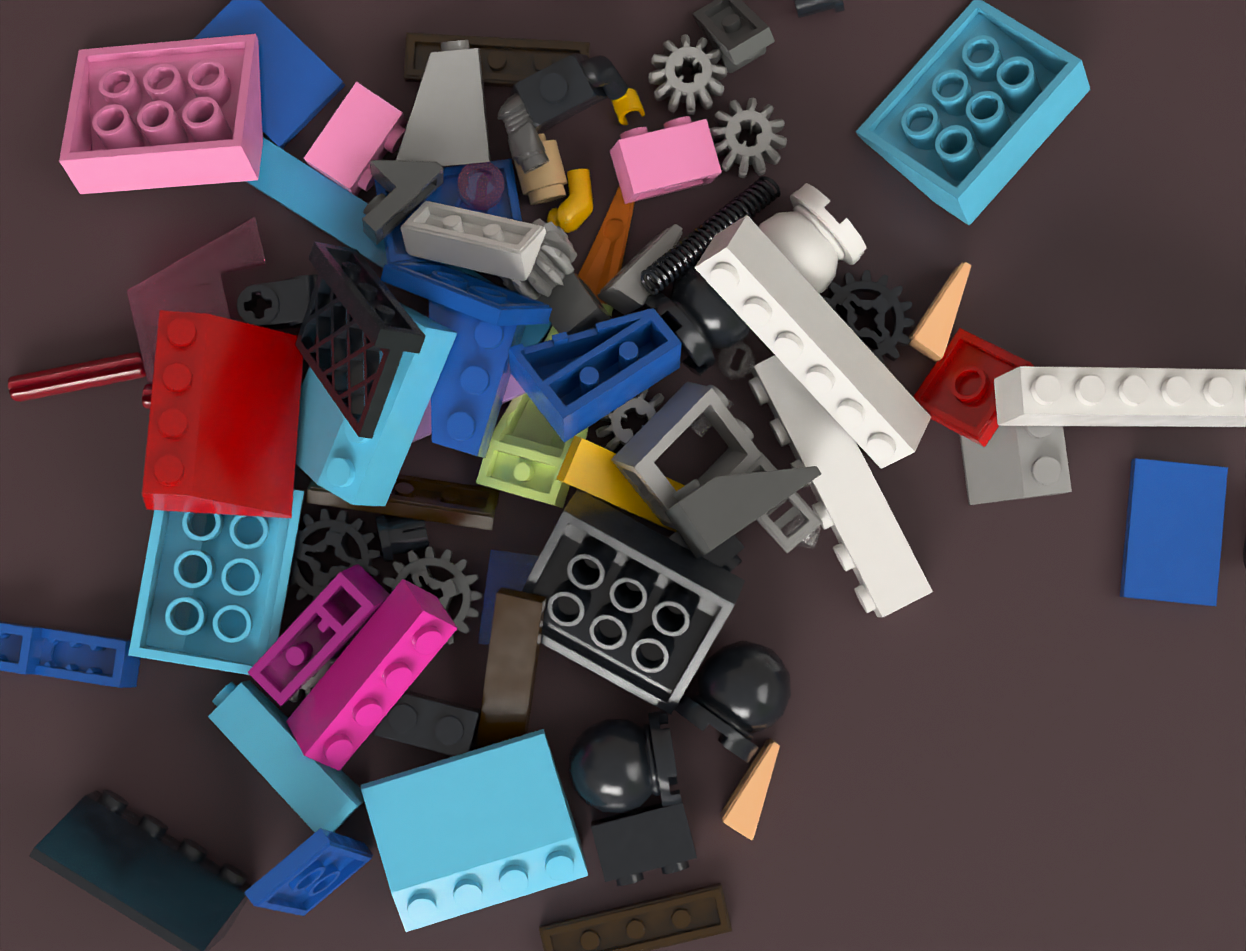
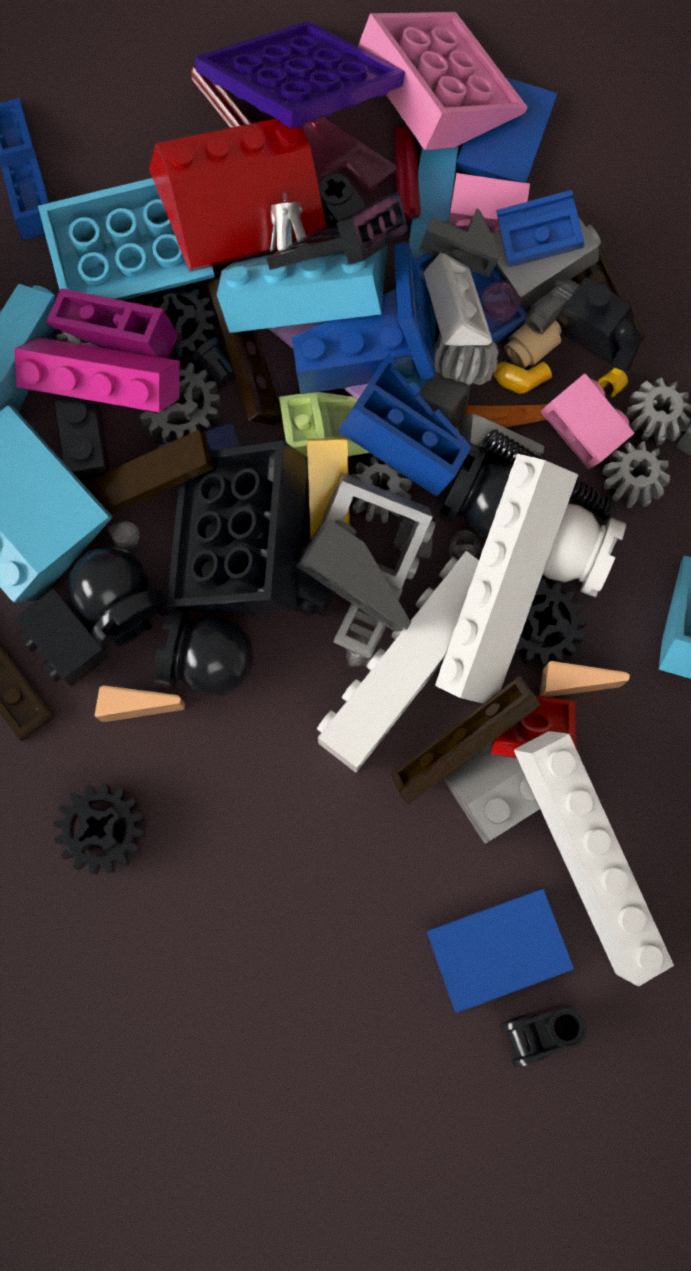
camera: 65 degrees right, 10 degrees down
(98, 279) = (299, 73): none -> dark purple plate
(268, 211) = (407, 171): none -> dark red axle
(277, 383) = (283, 218): none -> flat silver piece
(429, 103) = (540, 228): none -> blue plate
(557, 722) = (124, 534): none -> clear hinge
(890, 881) = (88, 815): none -> black gear
(955, 466) = (464, 740): none -> dark brown tile

